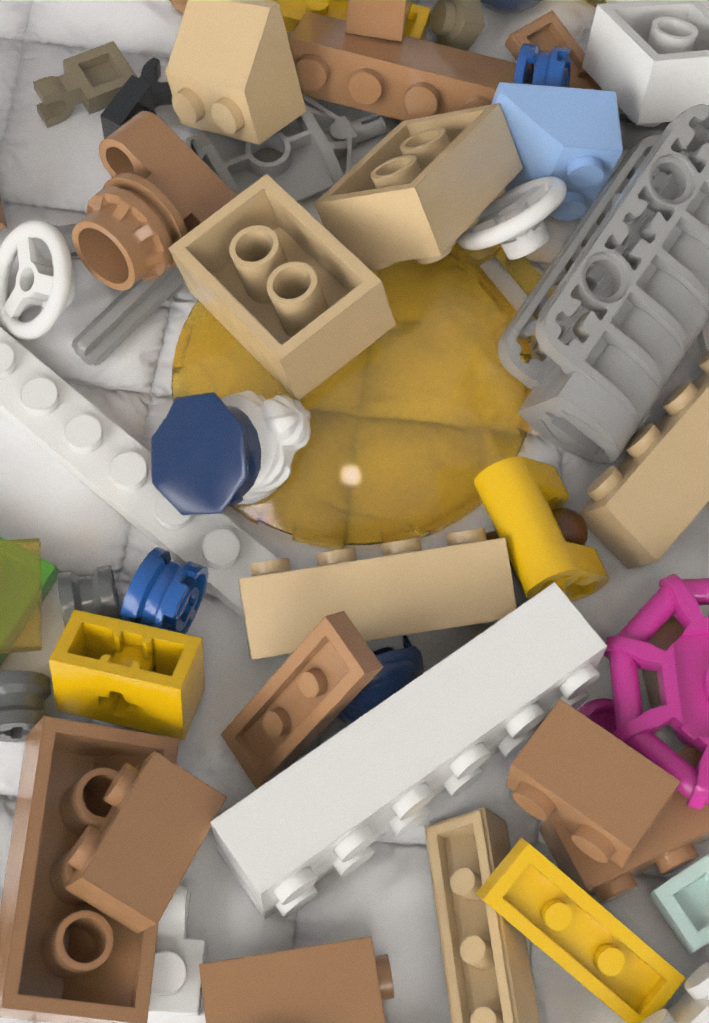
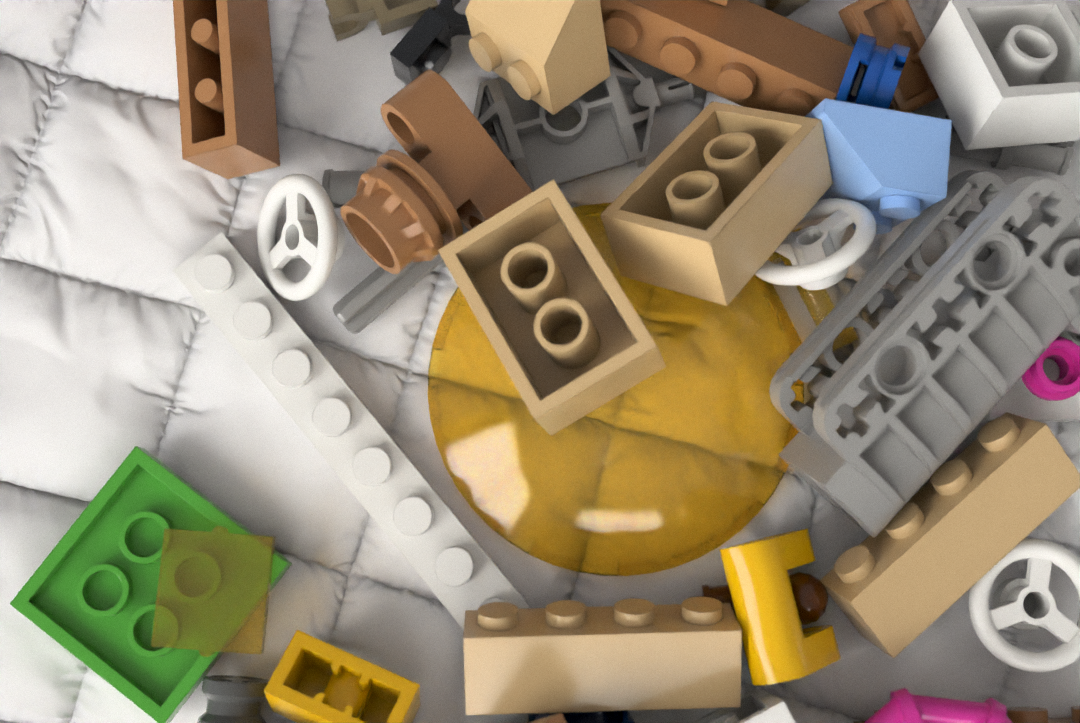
camera: 10 degrees right, 15 degrees up
(89, 593) = (316, 603): dark grey wheel -> none
(165, 592) = (389, 618): blue wheel -> none
(226, 449) = (472, 473): dark blue piece -> none

